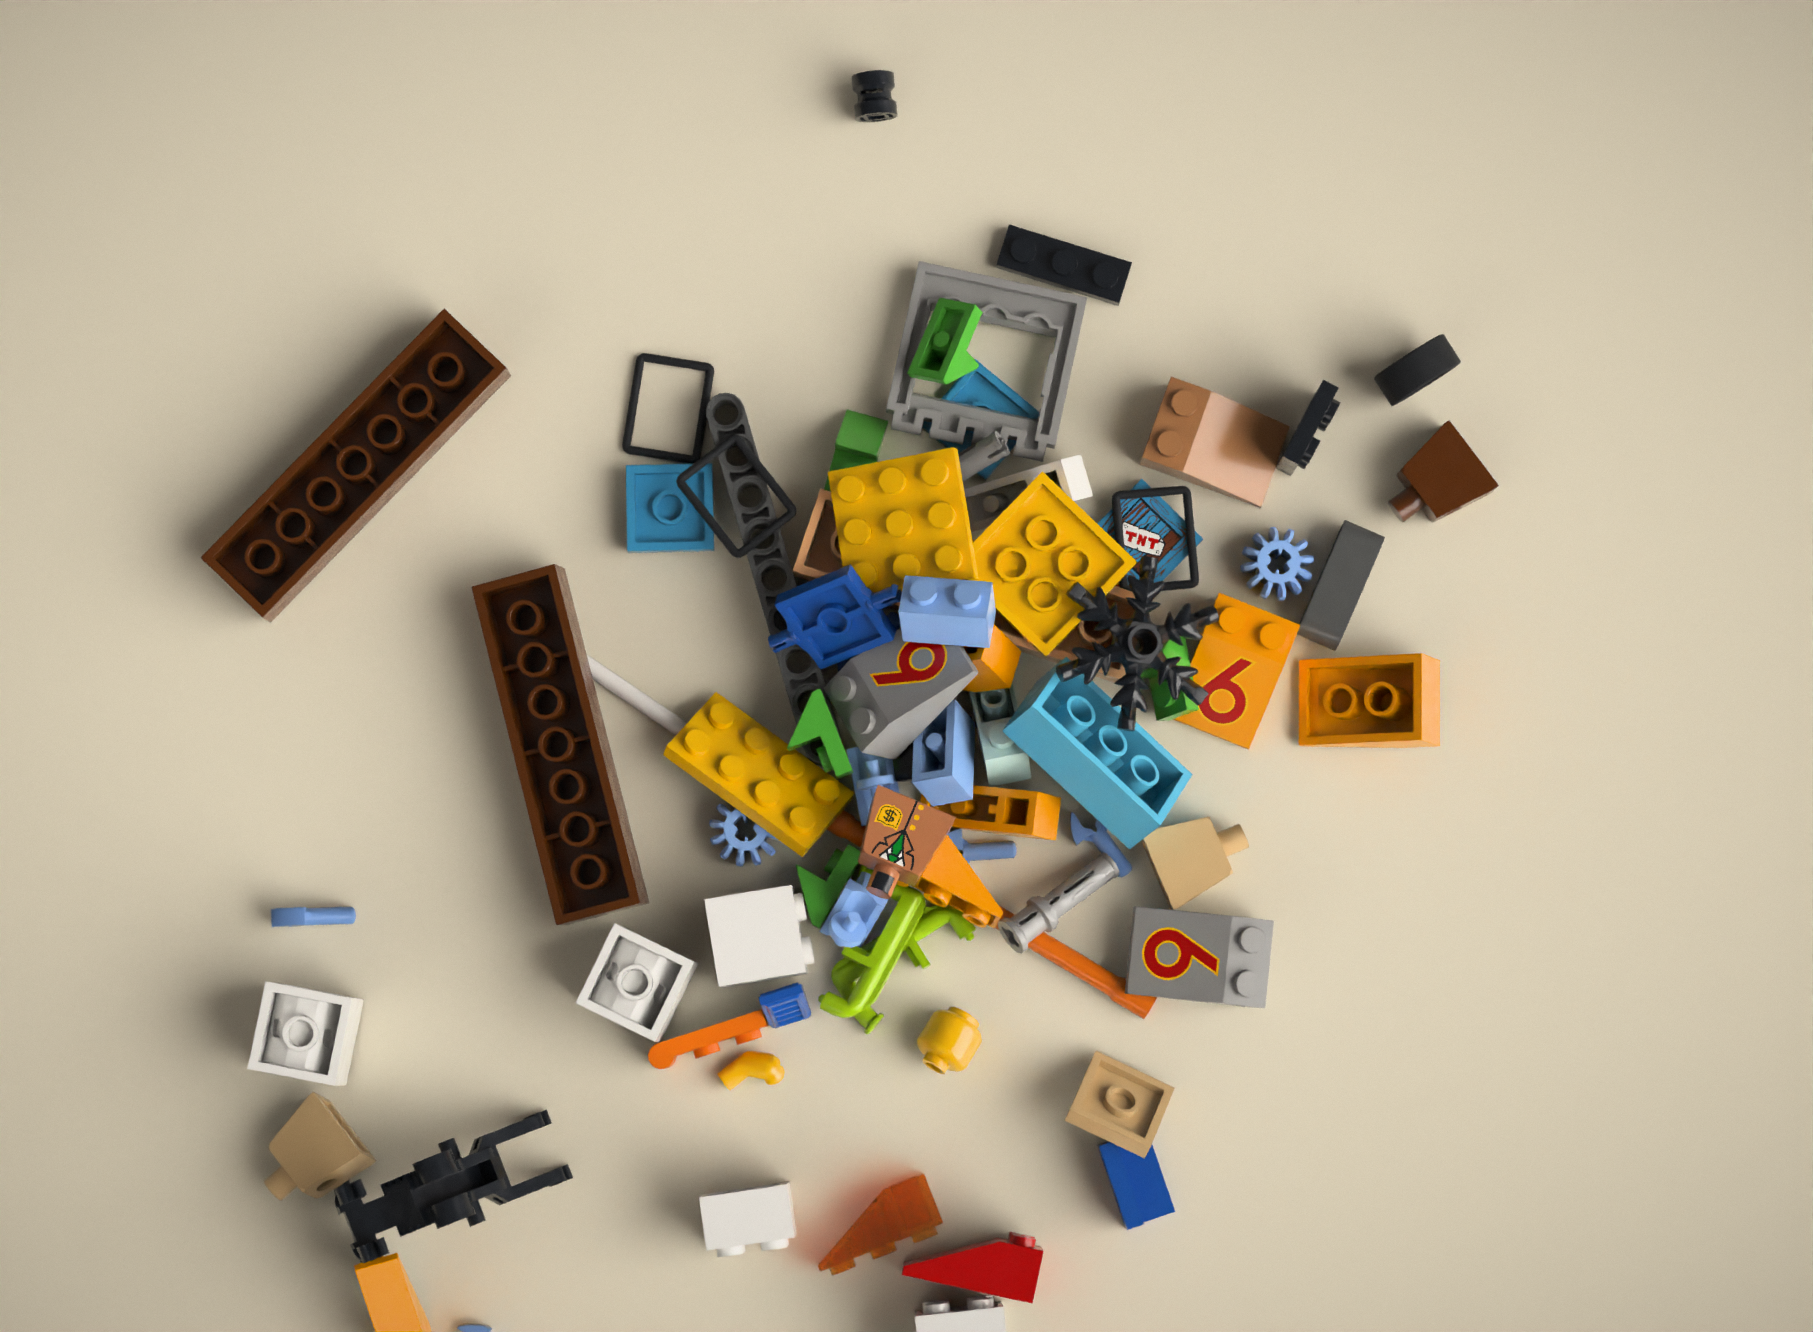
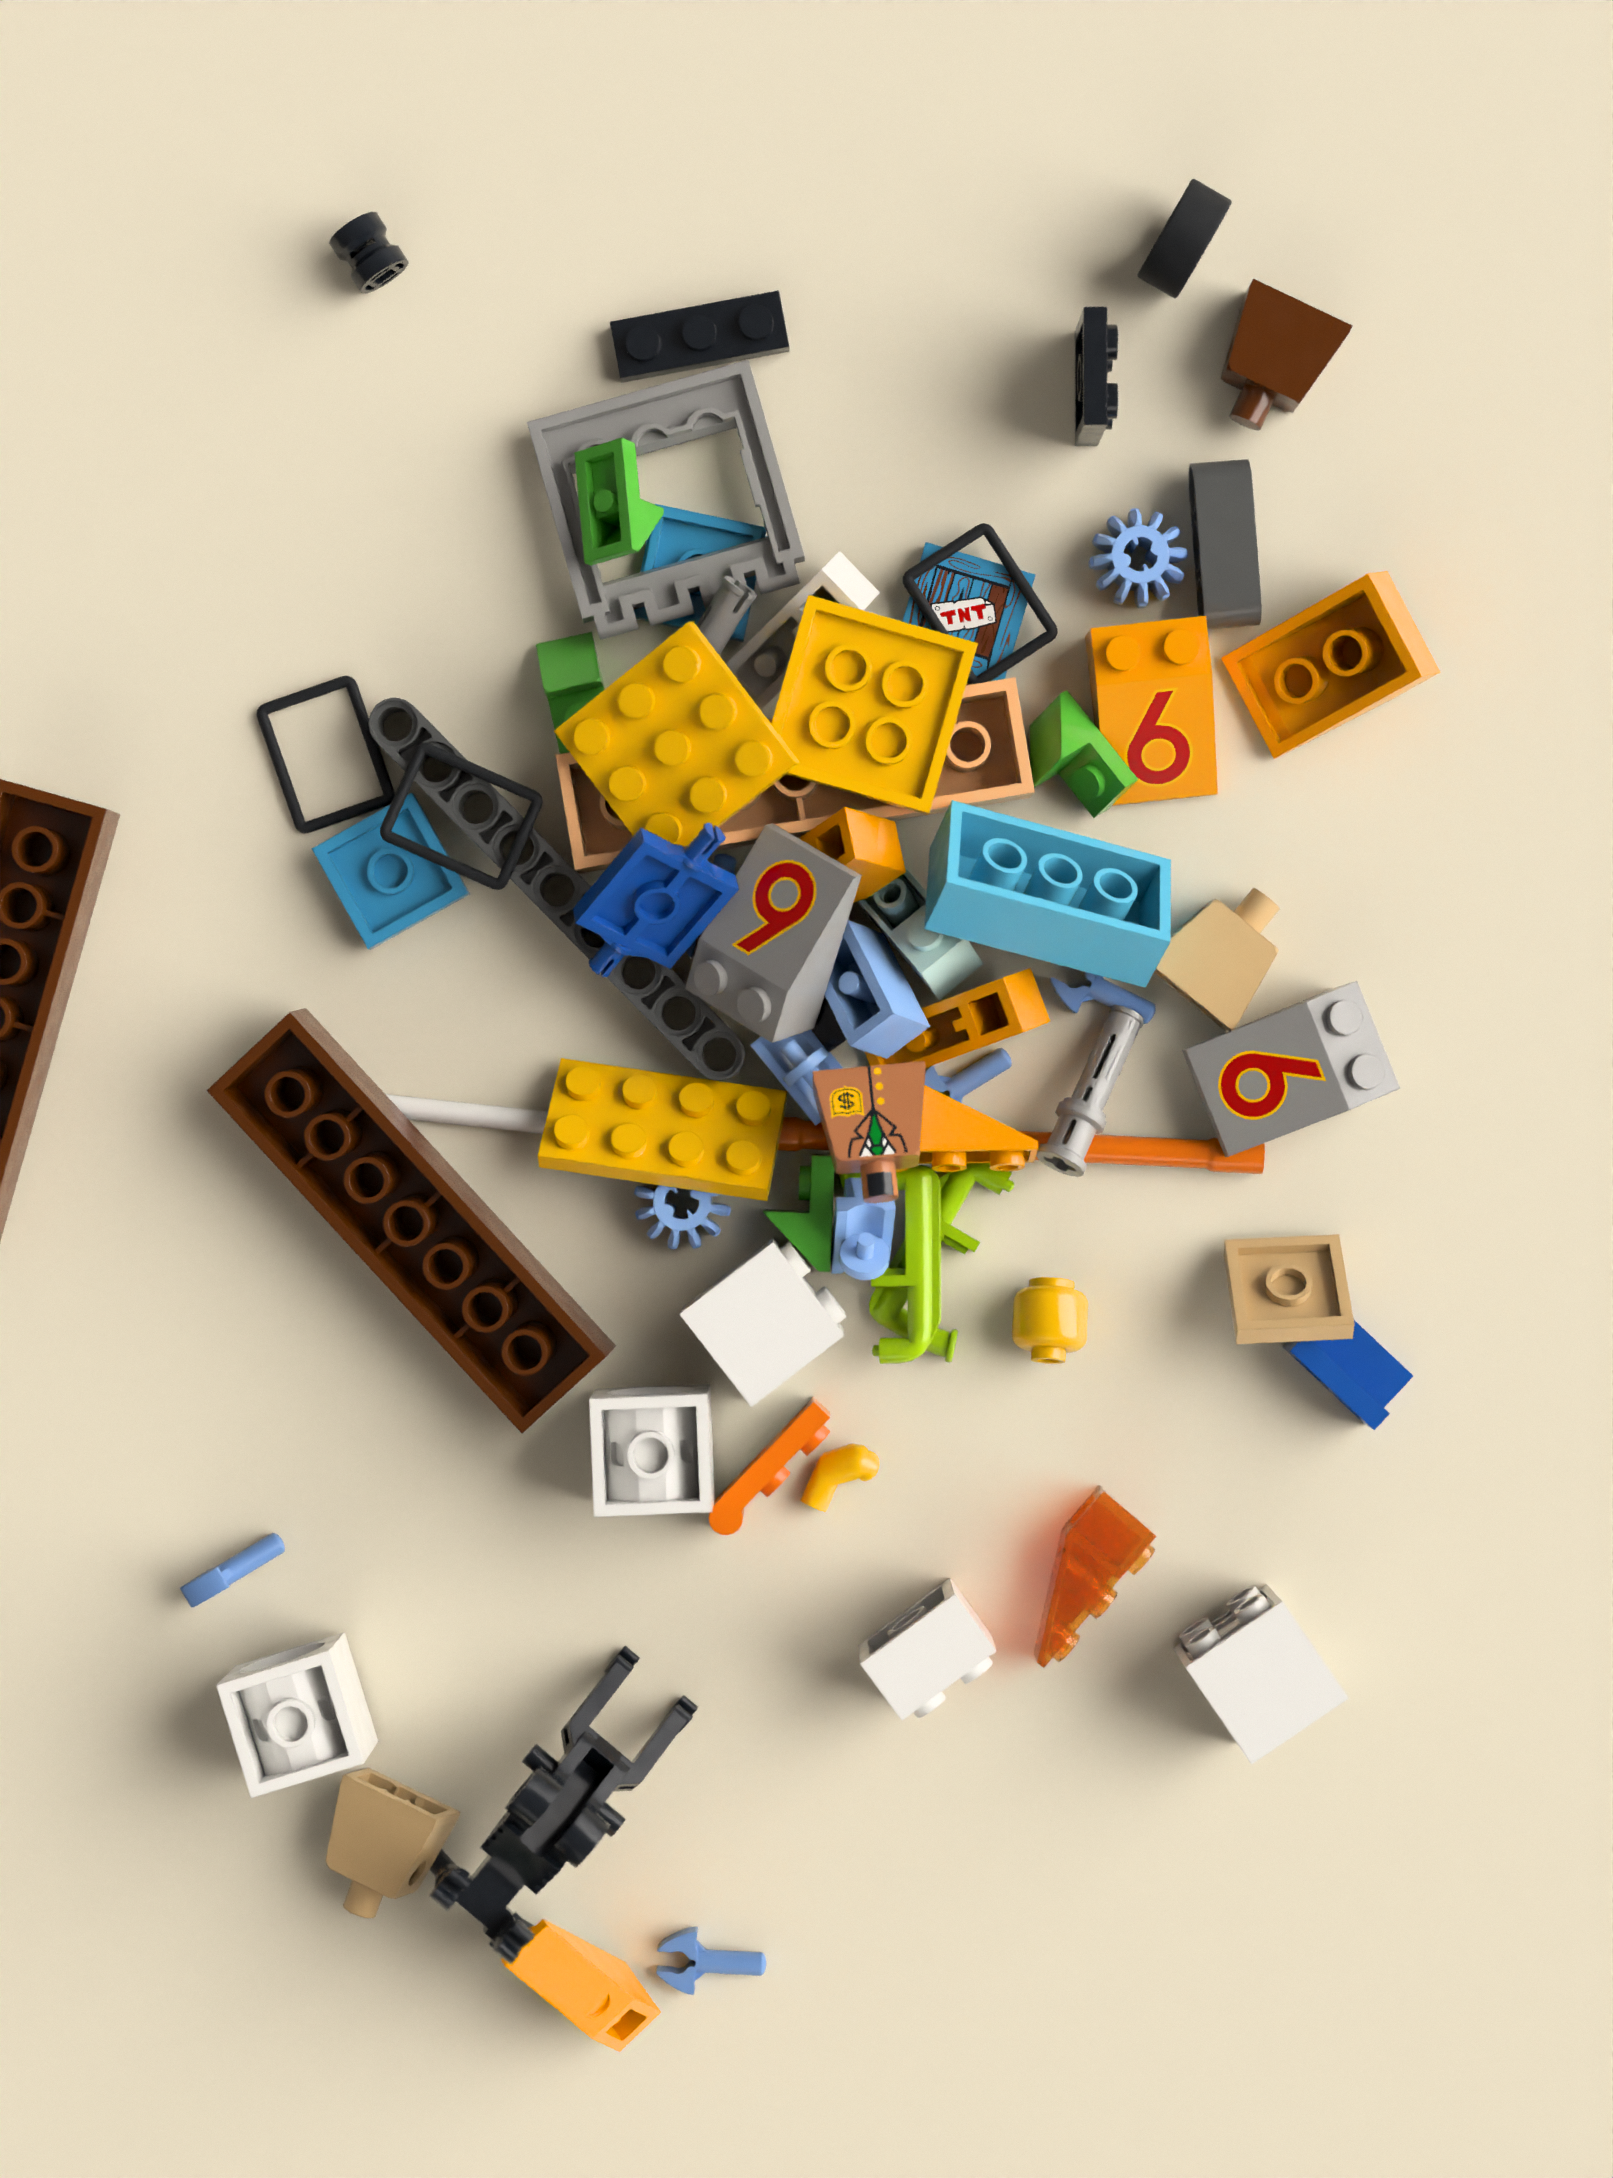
camera: 30 degrees left, 5 degrees up
(785, 1005) = (837, 1380): blue slope -> none
(818, 724) = (701, 1035): bright green slope -> none
(947, 611) = (785, 822): light blue brick -> none
(992, 1267) = (1231, 1561): red slope -> none
(1151, 641) = (1042, 727): black piece -> none
(1214, 442) = (987, 453): medium nougat slope -> none

